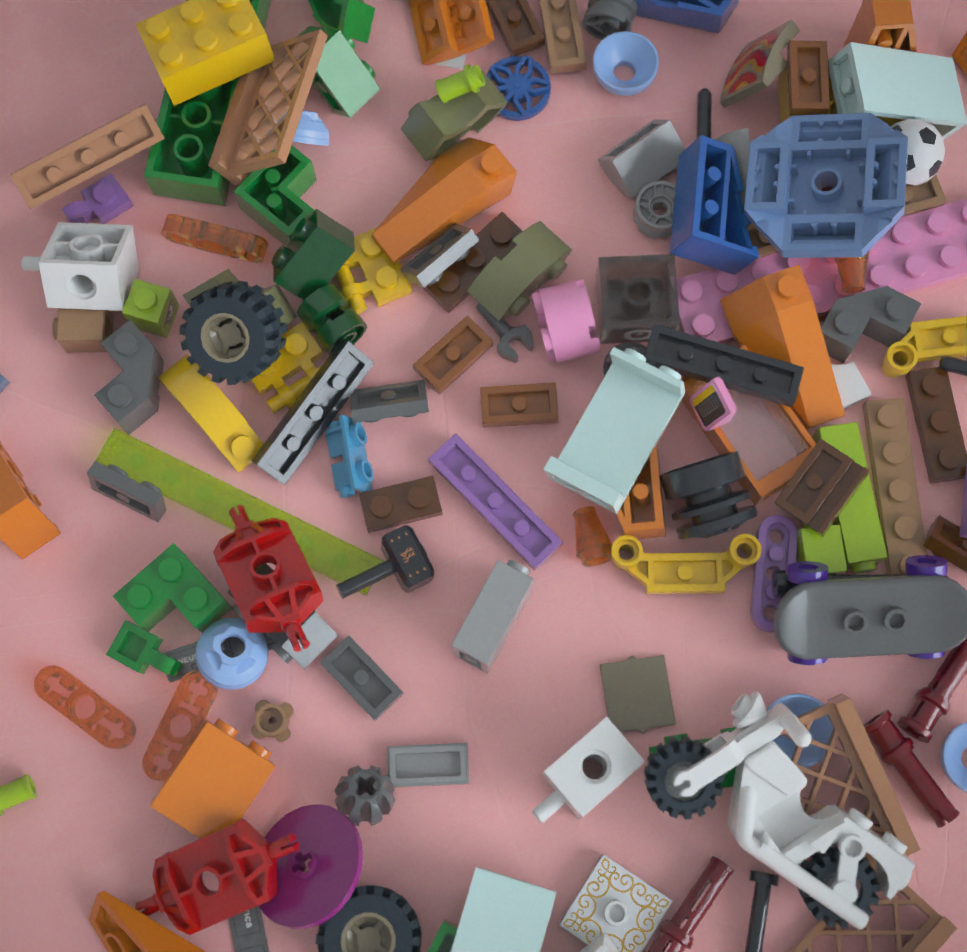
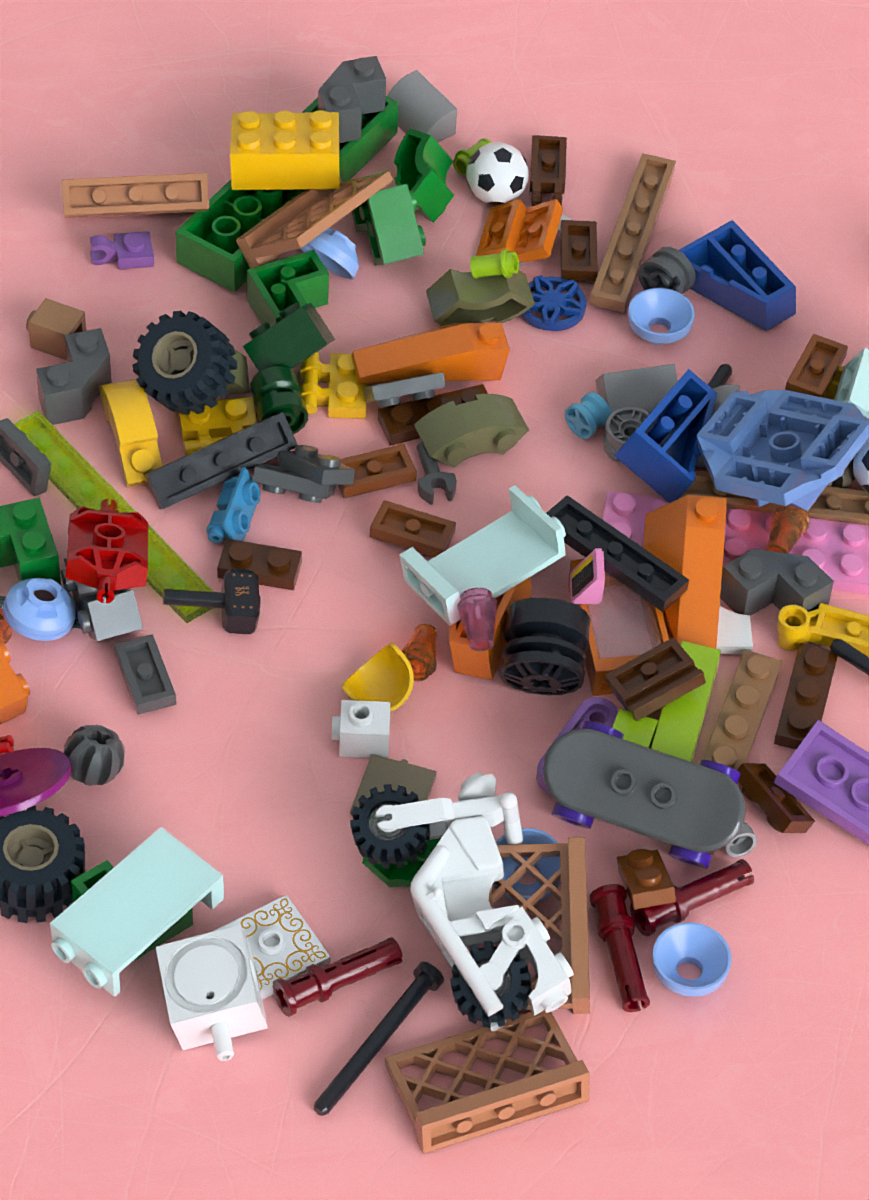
camera: 20 degrees right, 25 degrees down
(87, 266) = (87, 279): white piece -> none
(151, 308) = (121, 331): lime brick -> none
(214, 238) = (196, 297): clear orange beam -> none
(264, 712) = (45, 666): medium nougat plate -> none
(404, 382) = (316, 467): none -> dark grey plate
(428, 764) = (166, 766): light grey tile -> none
(493, 615) = (291, 663): light grey brick -> none
(495, 502) = (346, 592): medium lavender plate -> none
(568, 320) = (489, 473): bright pink brick -> none
(573, 787) = (308, 810): white piece -> none
(574, 592) = (382, 678): none -> yellow helmet
(583, 647) = (362, 728): none -> white brick
(613, 205) = (587, 415): none -> medium azure wheel
(635, 296) = (570, 470): clear smoke brick -> none
(646, 505) = (478, 617): none -> clear pink cone
(685, 571) = (494, 711): yellow plate -> none
(758, 64) = (782, 354): dark tan slope -> none
(904, 694) = (646, 878): none -> dark orange plate

